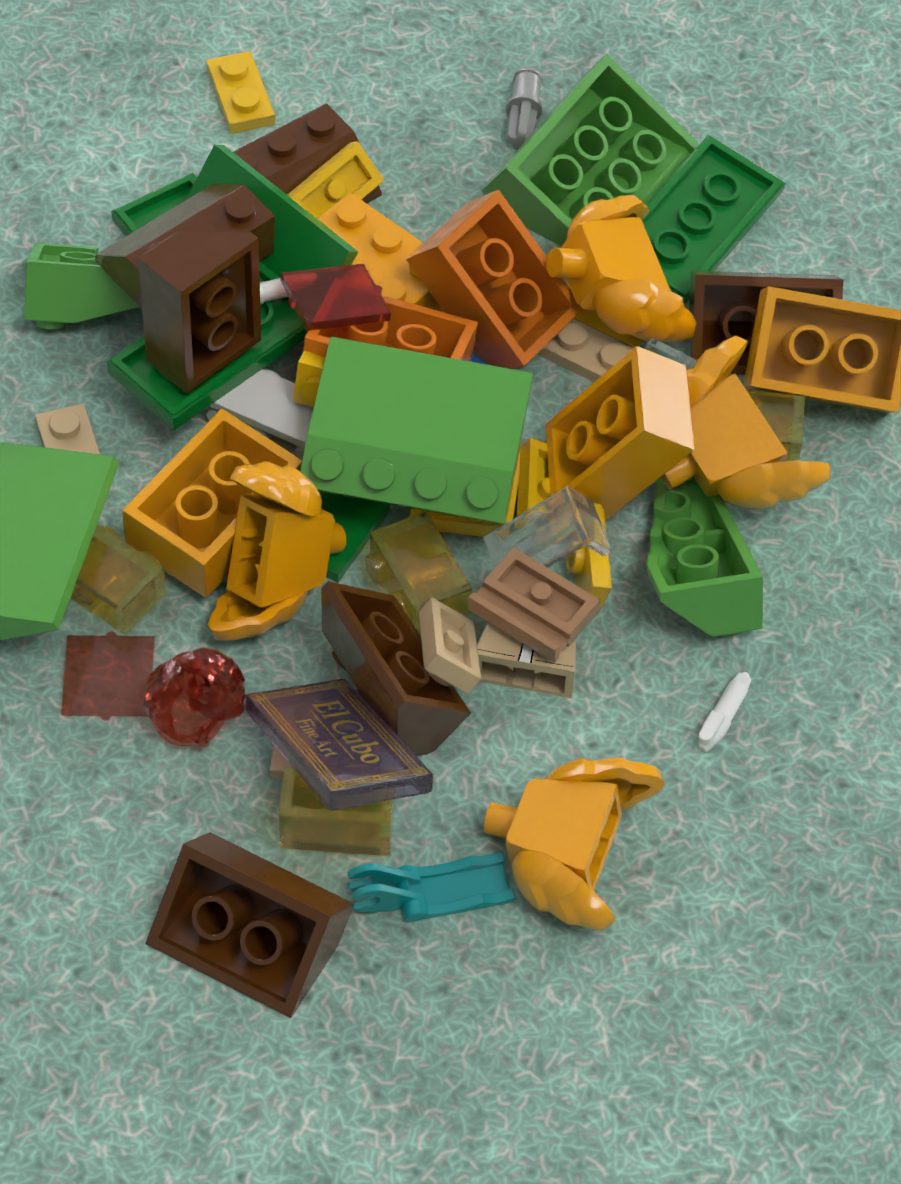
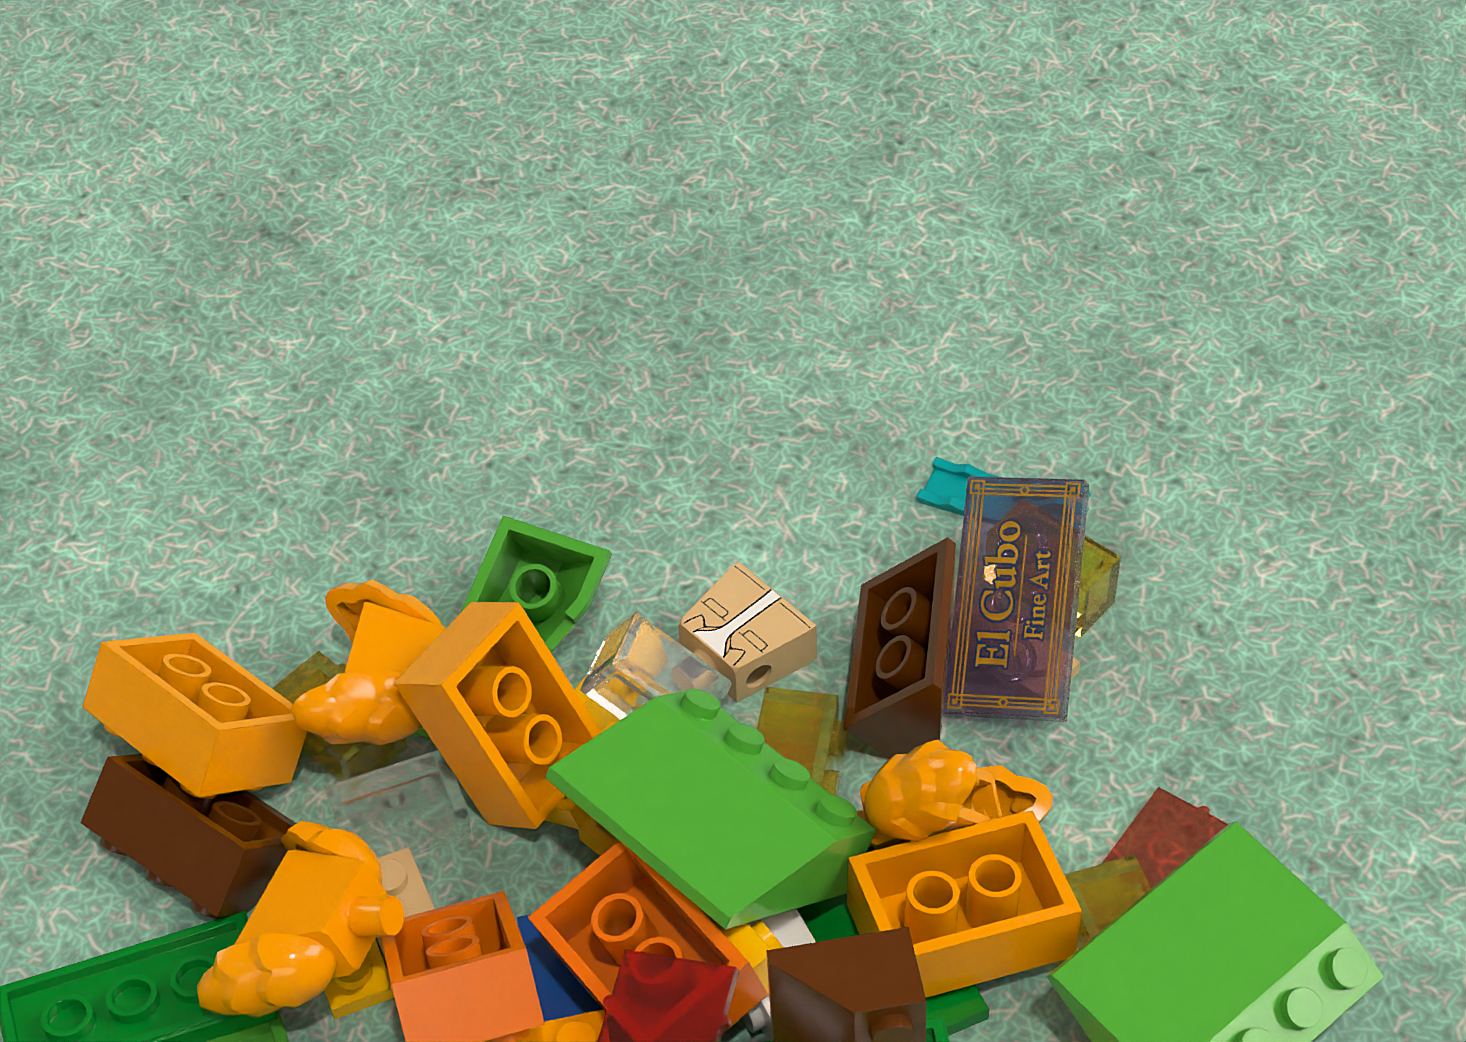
camera: 140 degrees left, 5 degrees down
(194, 696) = (1114, 753): clear red hair -> none
(248, 922) = (1187, 539): reddish brown slope -> none
(449, 646) = (838, 632): tan plate -> none
(534, 604) = (730, 614): medium nougat plate -> none
(566, 831) = (854, 460): light orange torso -> none
(721, 716) = (631, 502): white piece -> none

